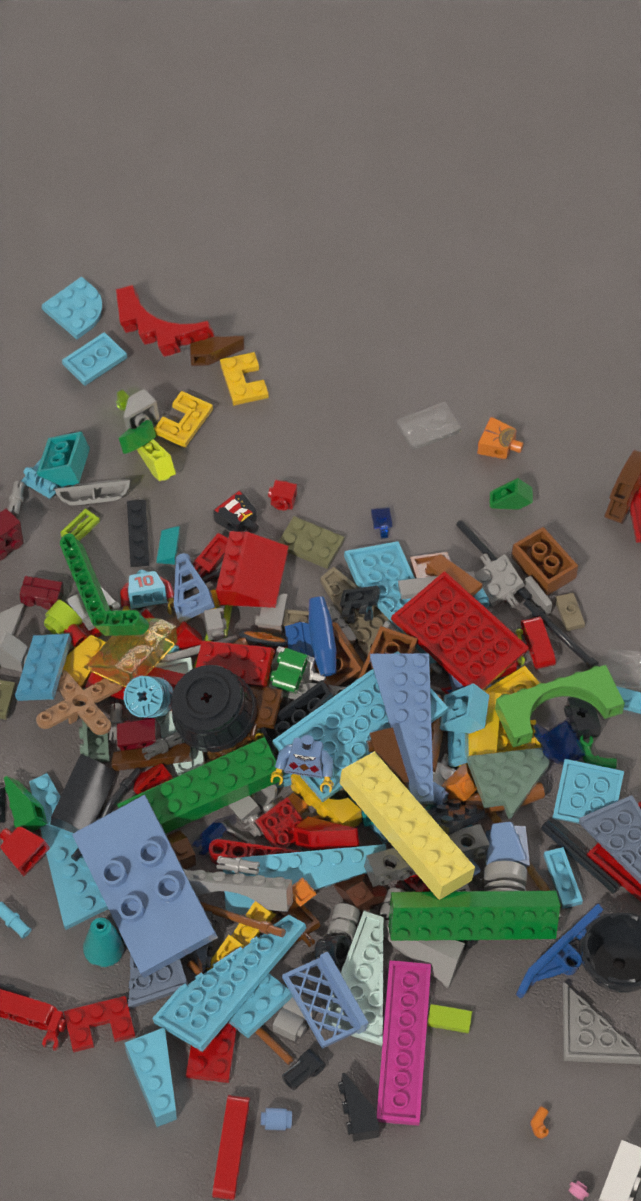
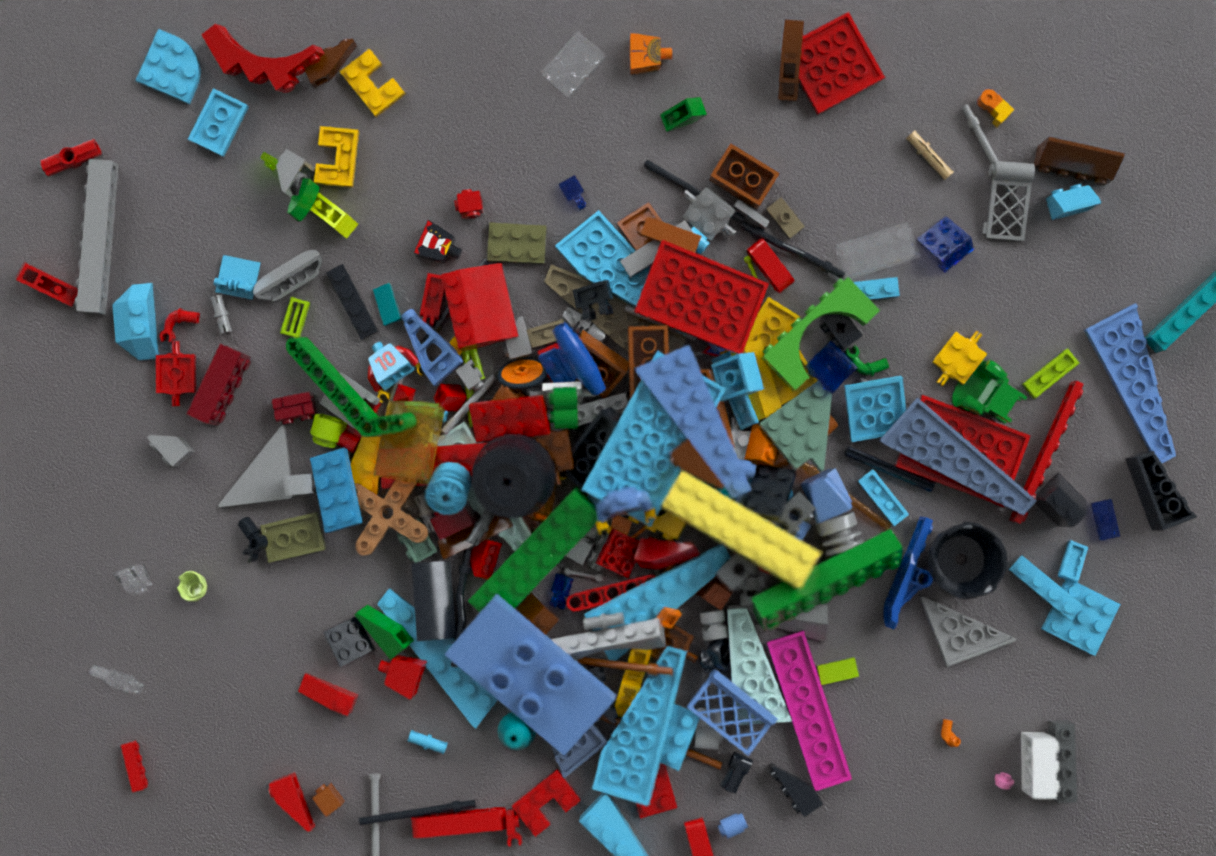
camera: 20 degrees left, 30 degrees up
(64, 459) = (245, 256): teal slope -> none

